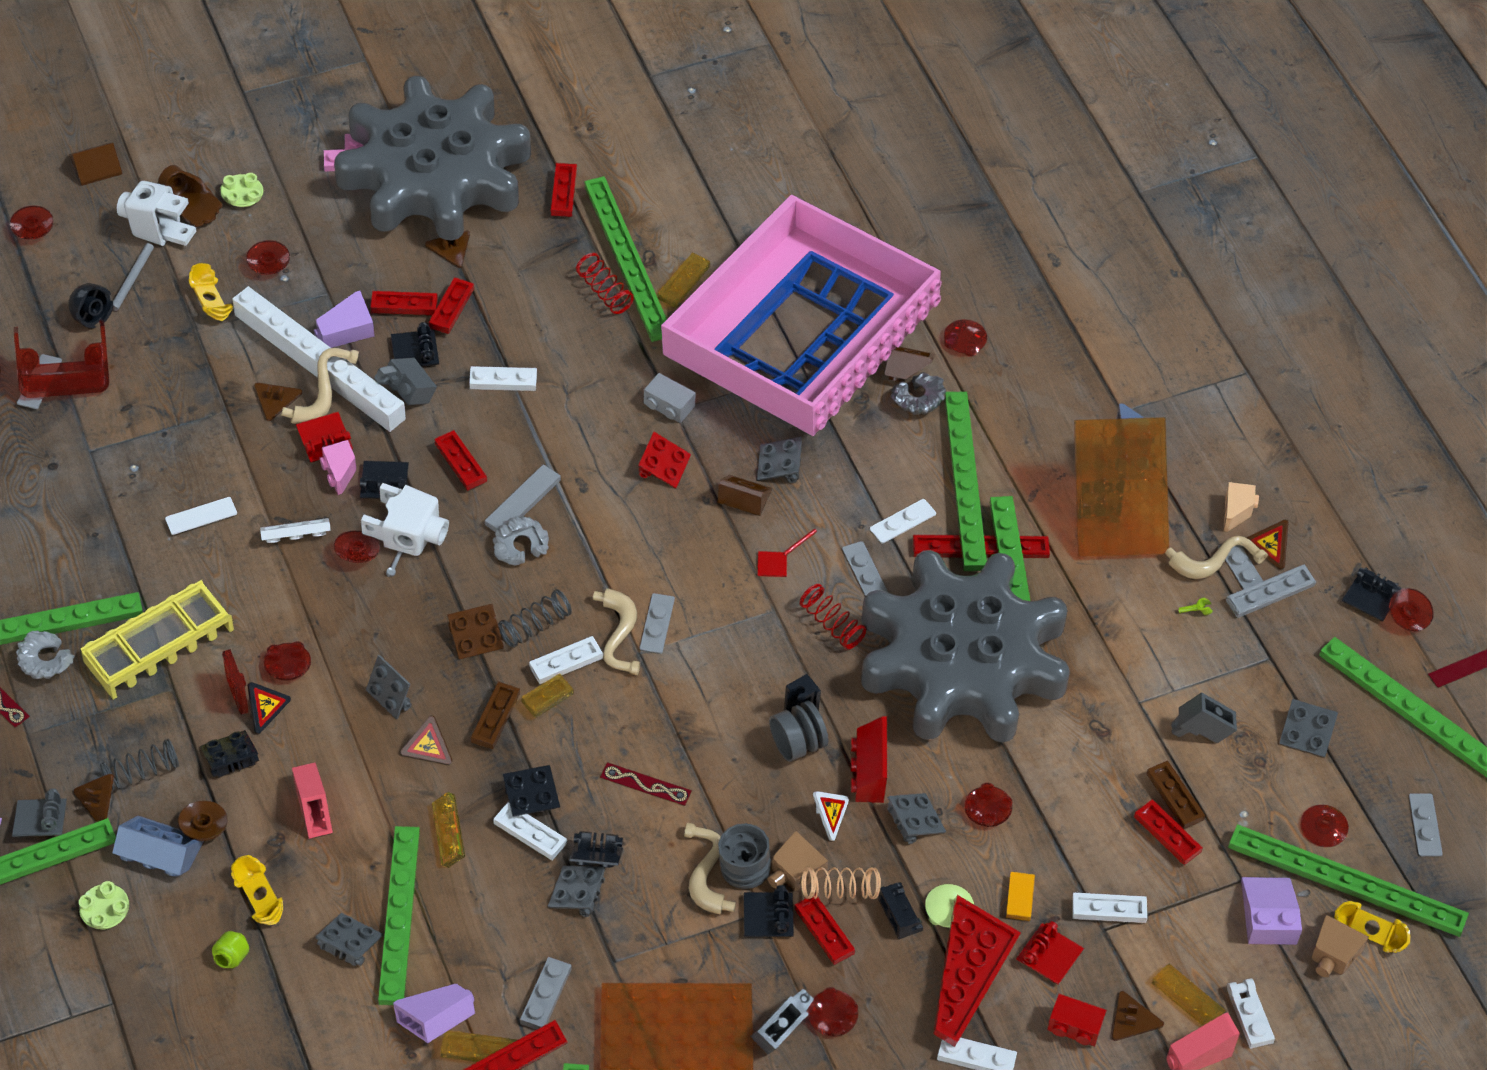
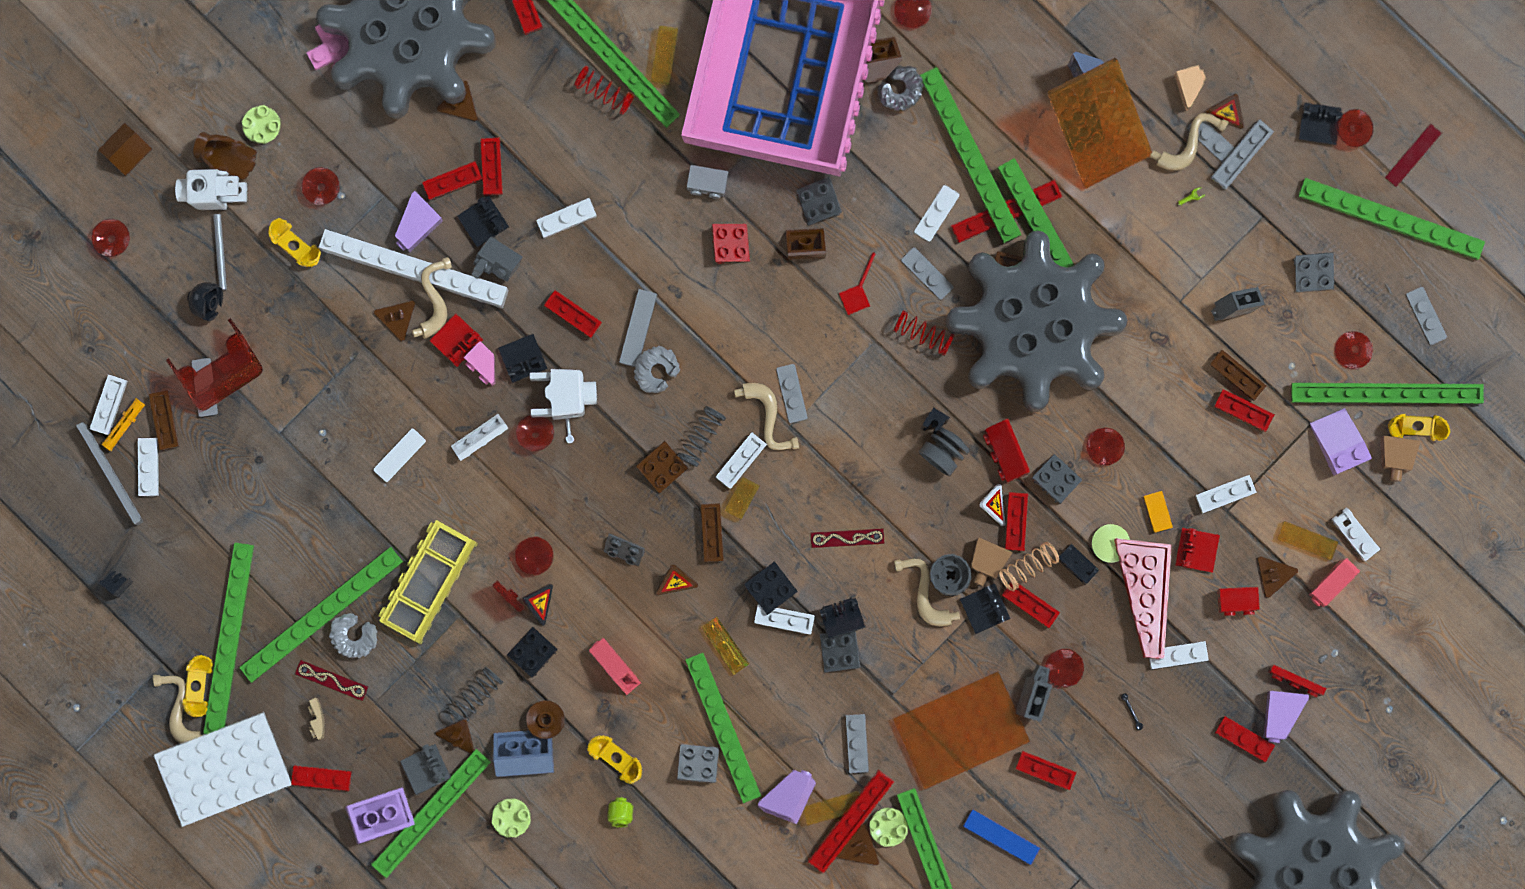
camera: 25 degrees left, 30 degrees up
(849, 838) = (1016, 521): none -> red plate

